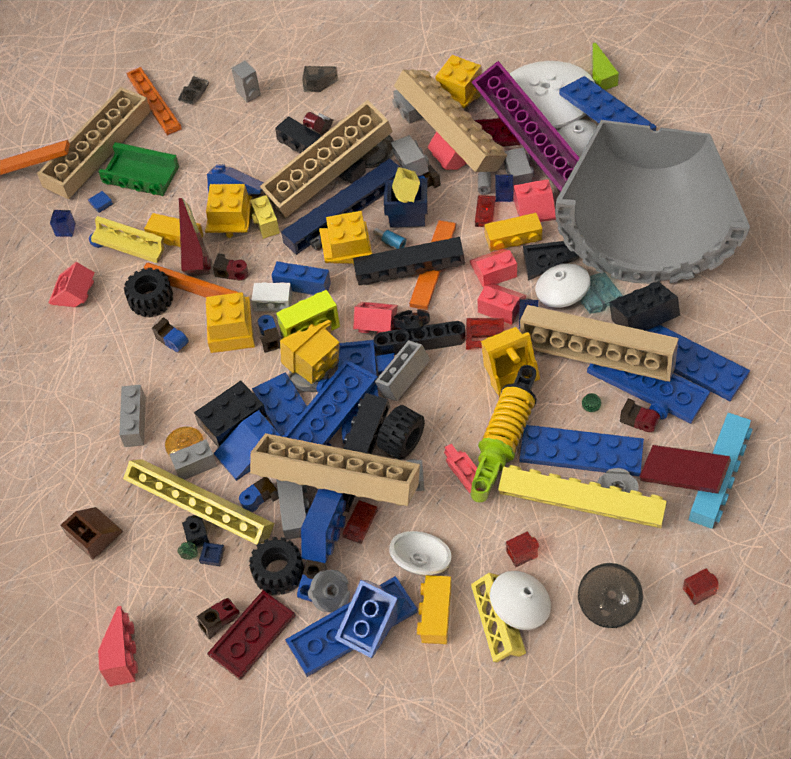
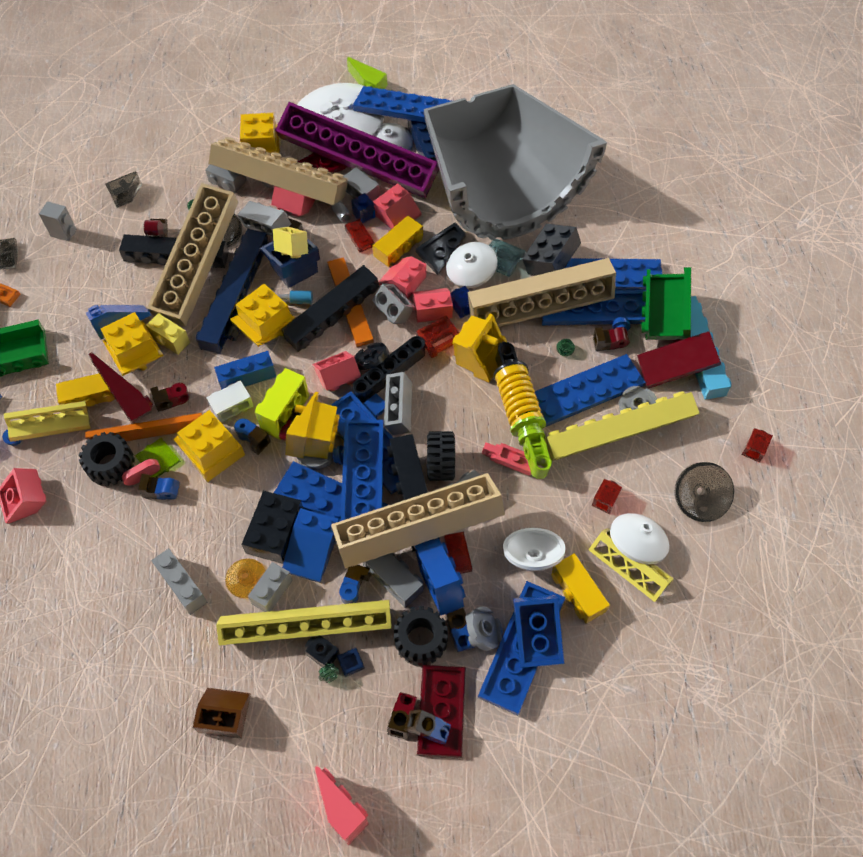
camera: 40 degrees left, 5 degrees up
(173, 315) = (134, 474): none -> coral tile
(187, 313) = (160, 451): none -> clear neon green piece
(226, 635) = (427, 726): none -> dark brown leg
(464, 284) = (393, 303): none -> light grey brick
(712, 413) = (667, 306): none -> green panel

